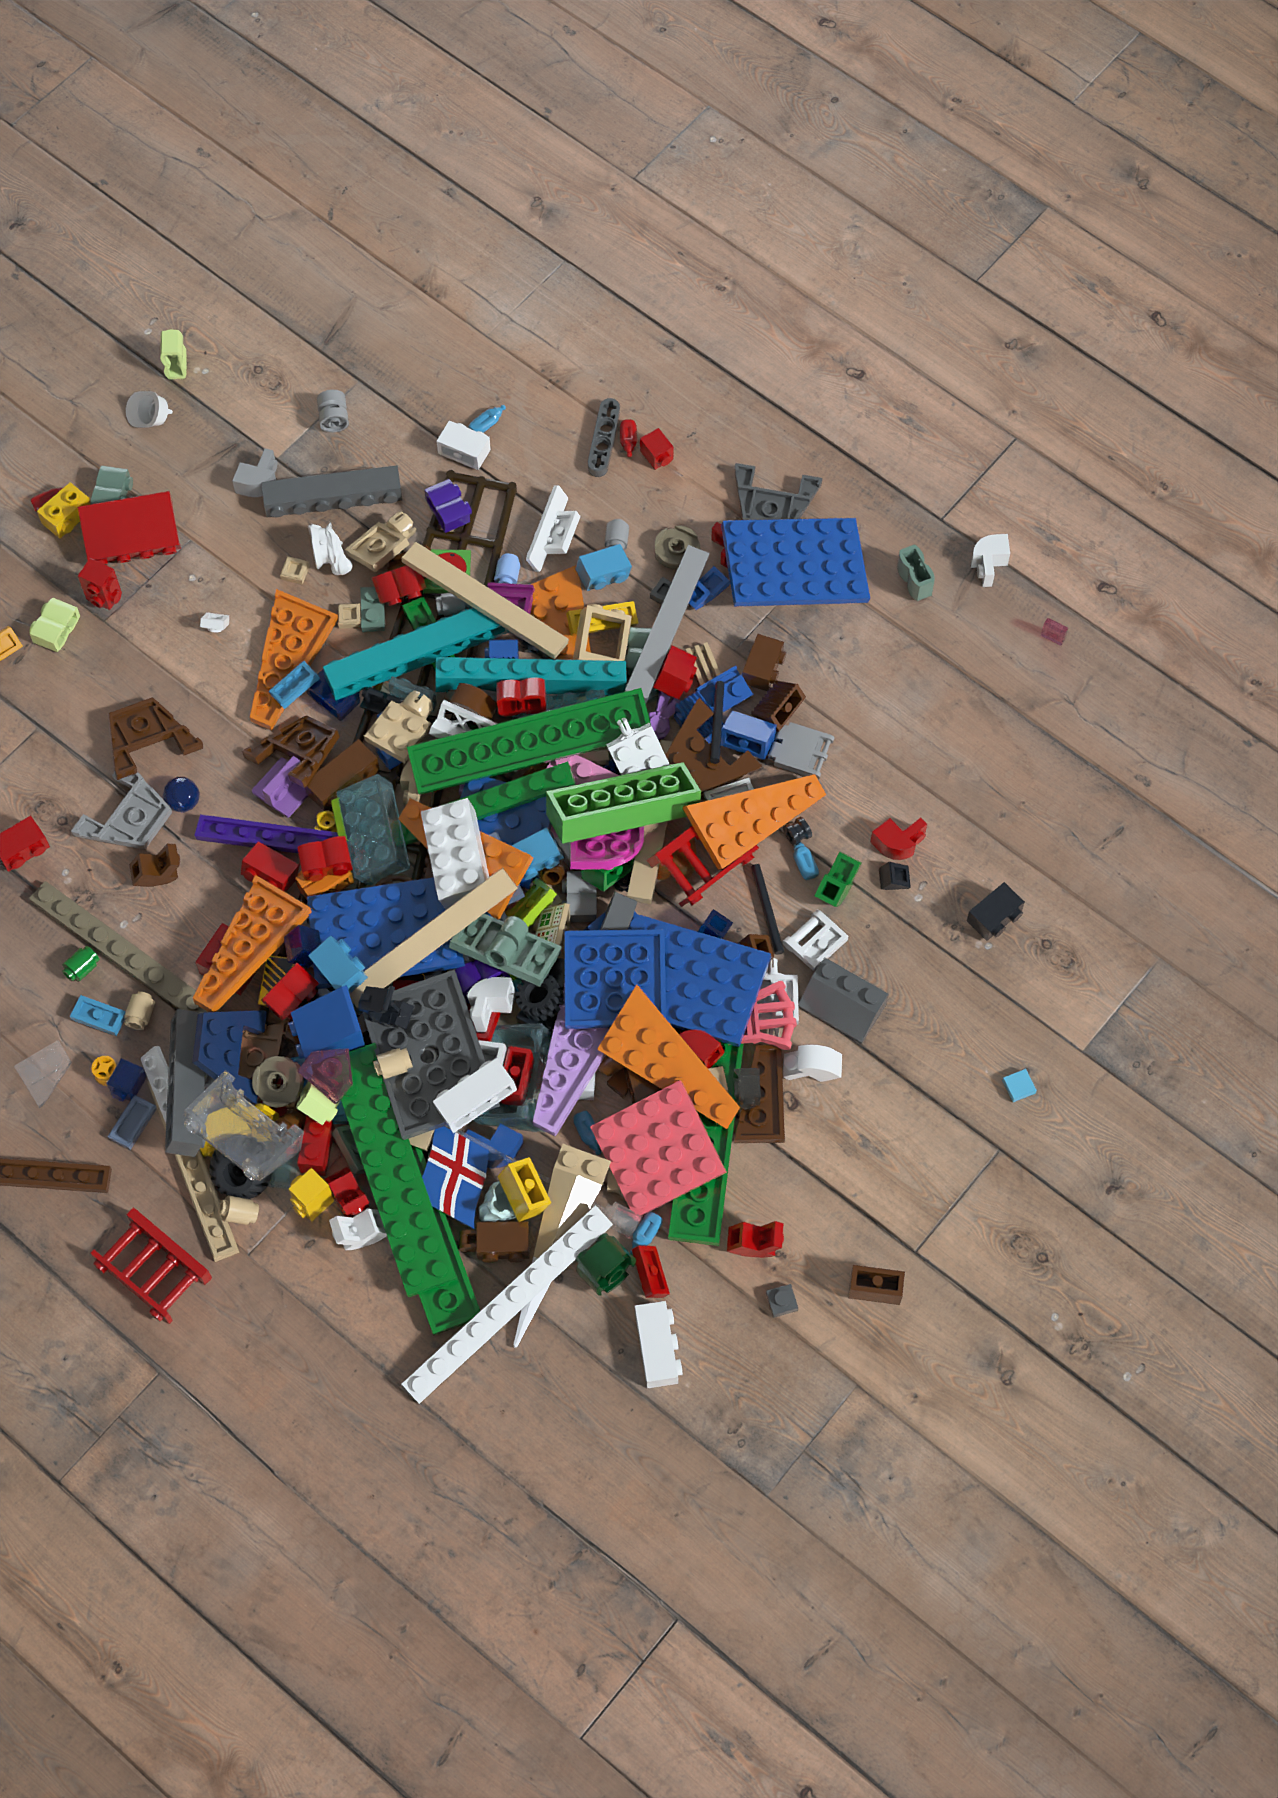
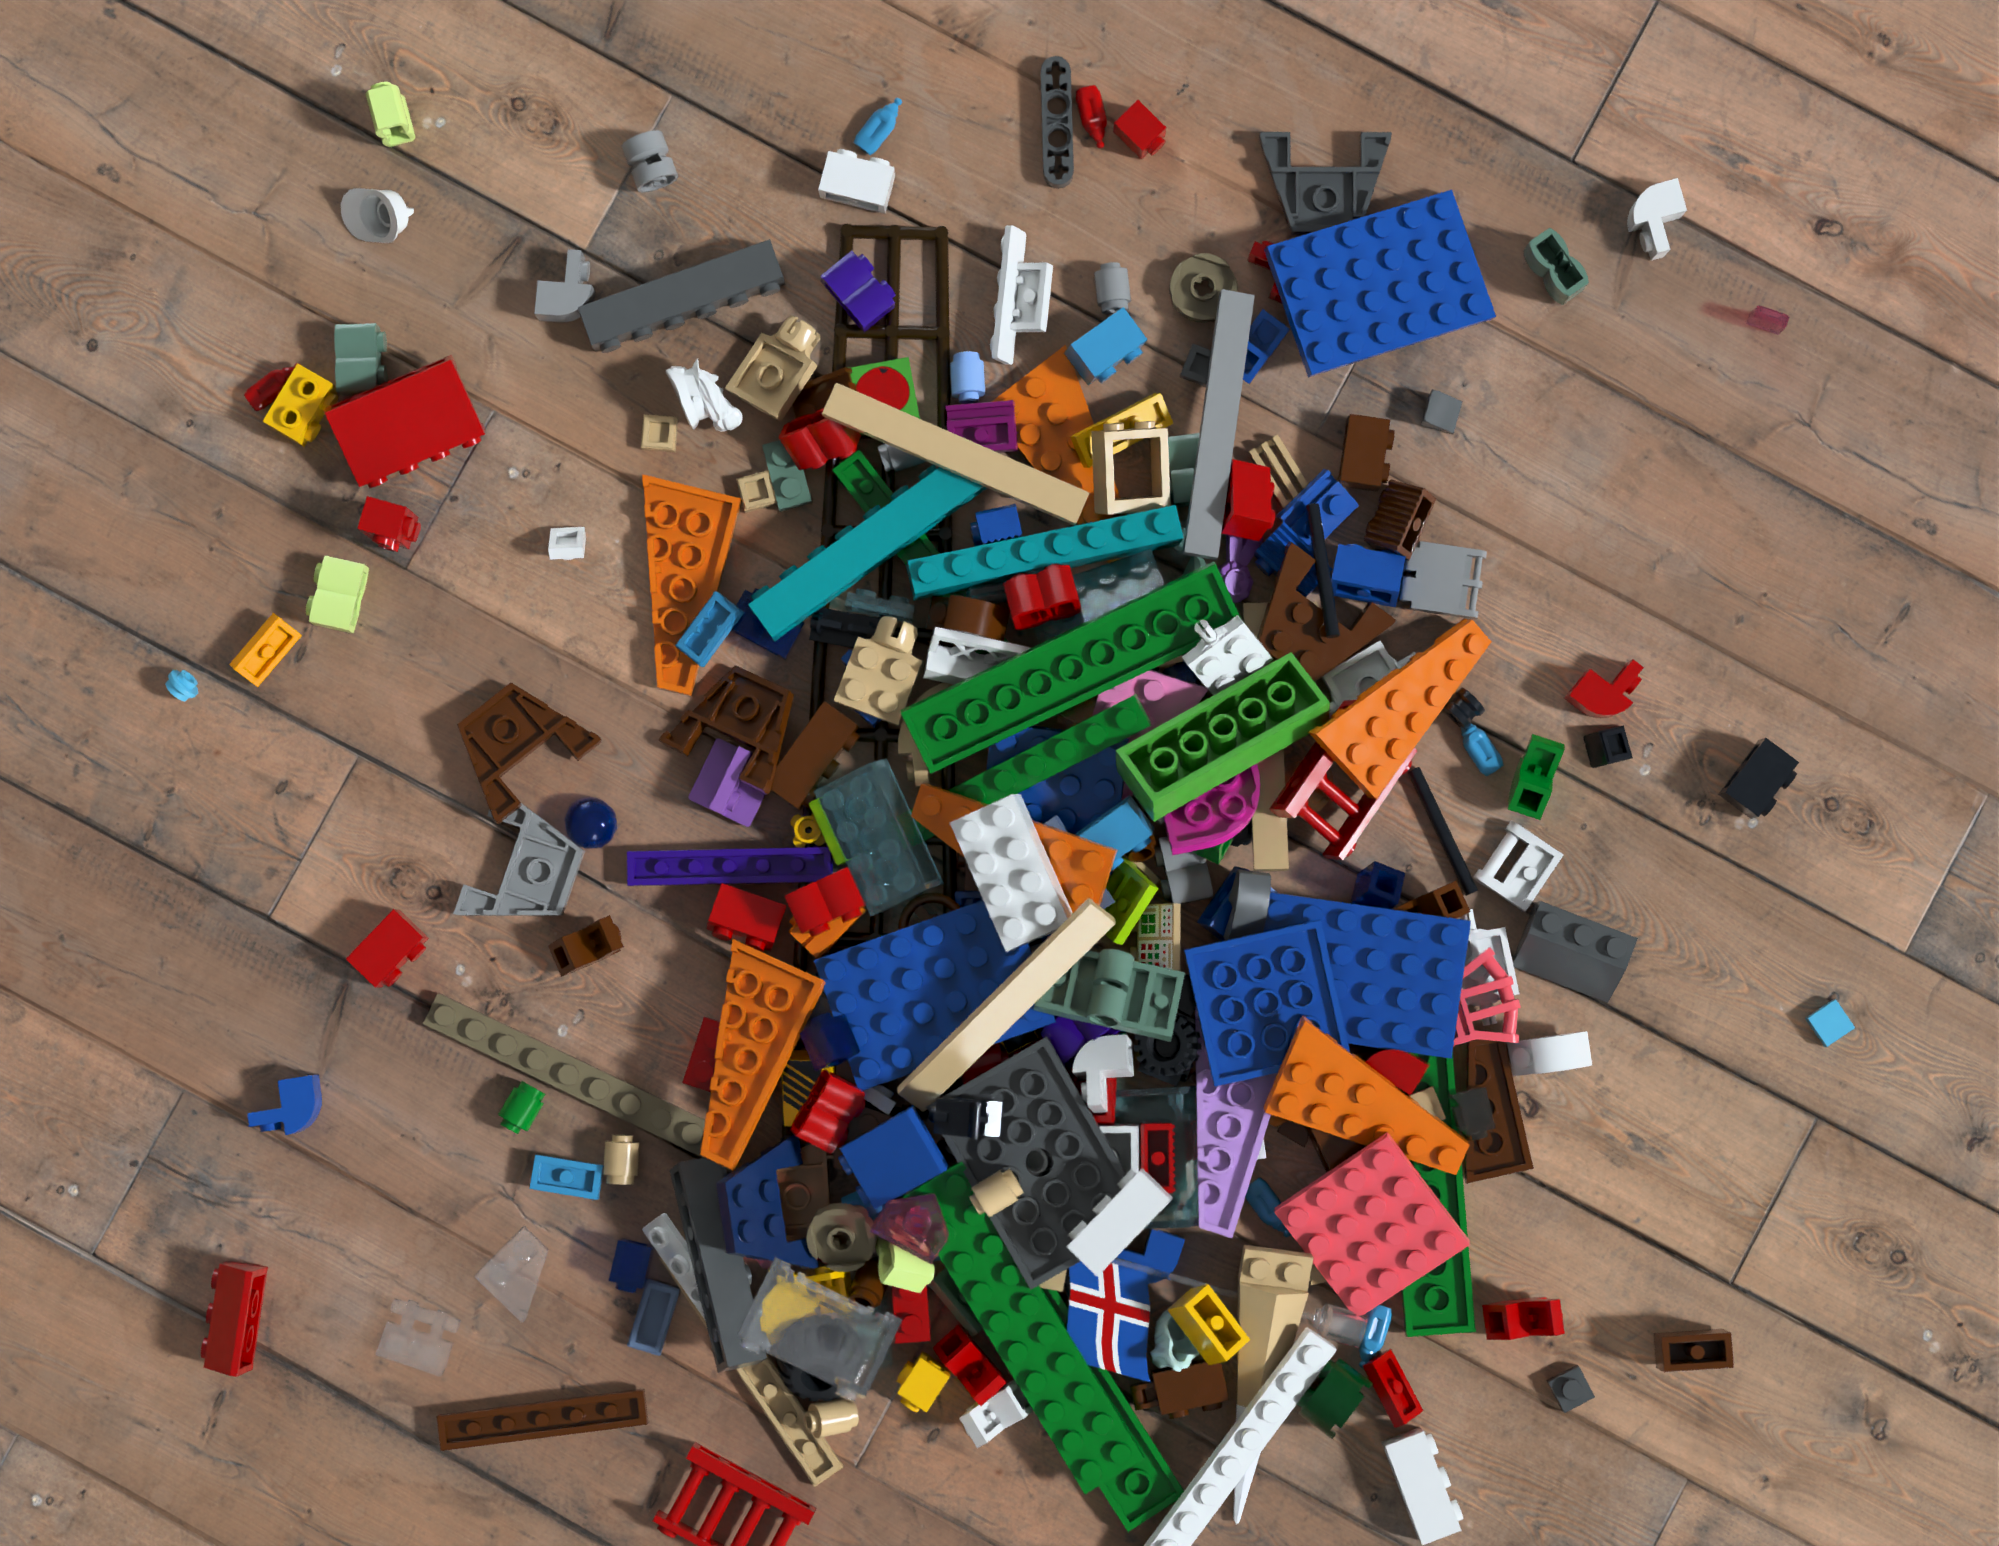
camera: 10 degrees left, 20 degrees up
(103, 1065) = (593, 1258): light orange wheel -> none
(338, 965) = (889, 1070): dark azure brick -> none
(821, 649) = (1441, 412): none -> dark grey slope

